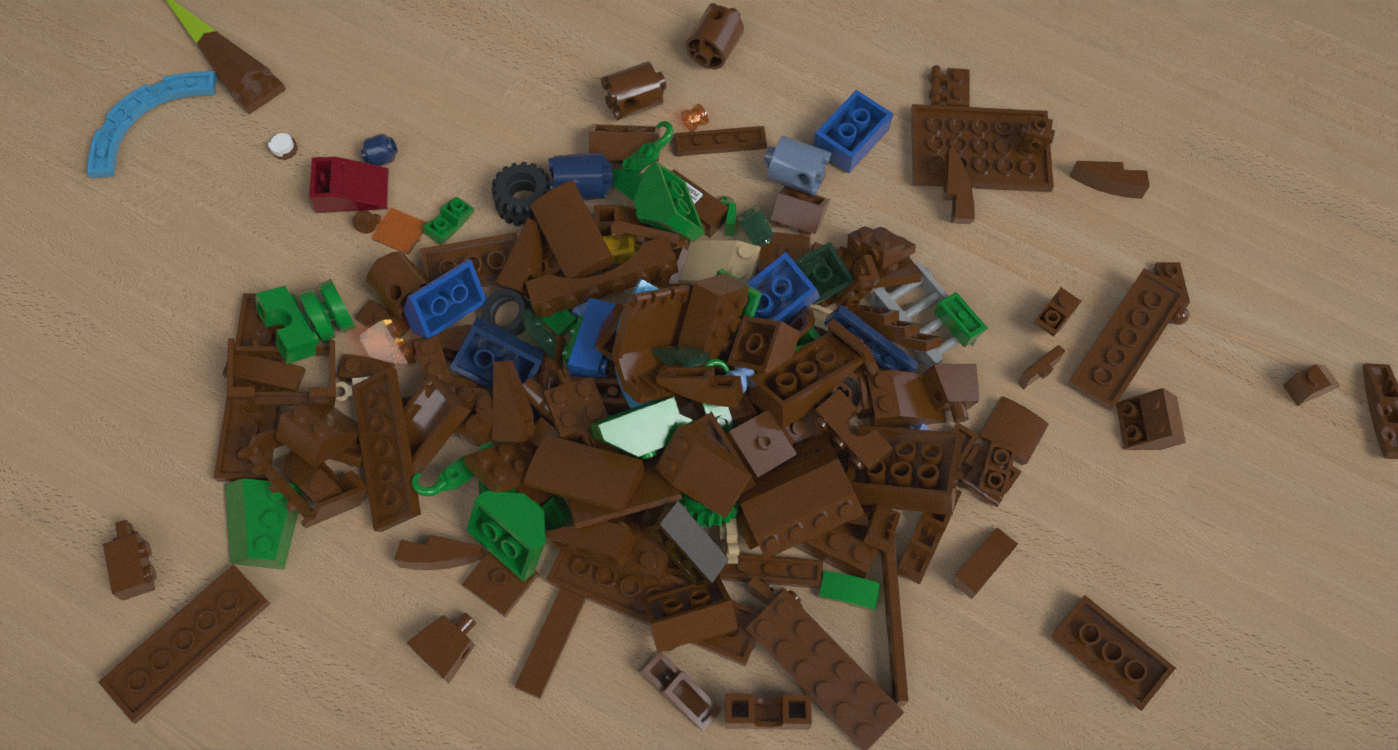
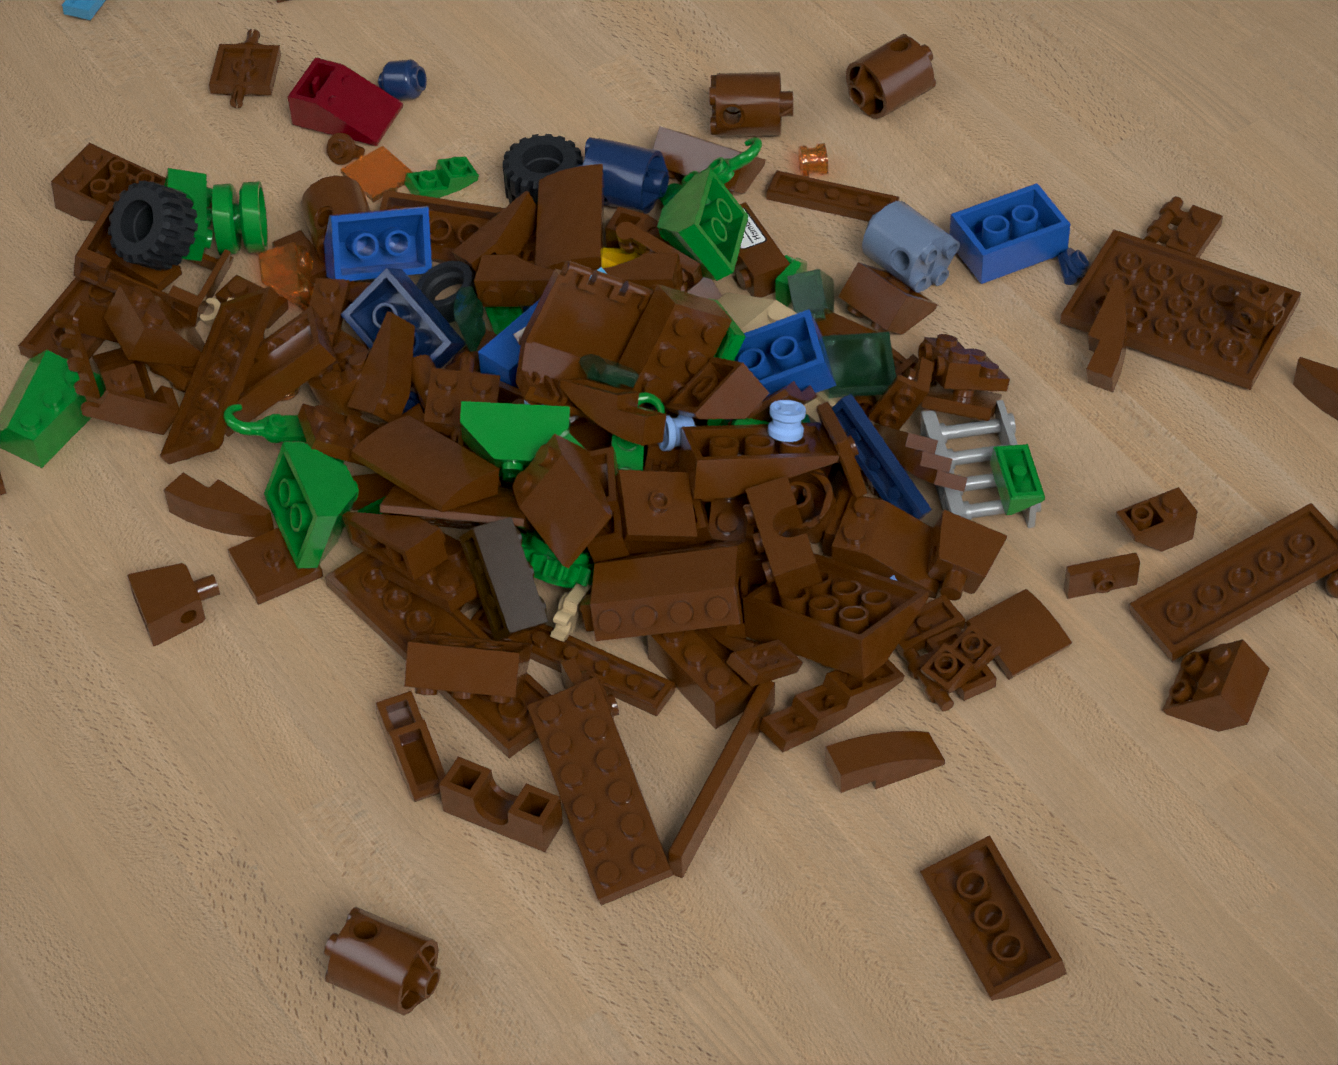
camera: 30 degrees right, 15 degrees down
(209, 318) = (94, 180): none -> reddish brown slope
(257, 179) = (245, 69): none -> reddish brown plate
(260, 360) = (152, 225): none -> black tyre
(283, 146) = (295, 45): white piece -> none
(550, 643) = (292, 647): reddish brown tile -> none
(816, 345) = (786, 420): none -> light blue wheel
(850, 590) = (689, 723): green slope -> none
(898, 139) = (1072, 265): none -> dark blue plate

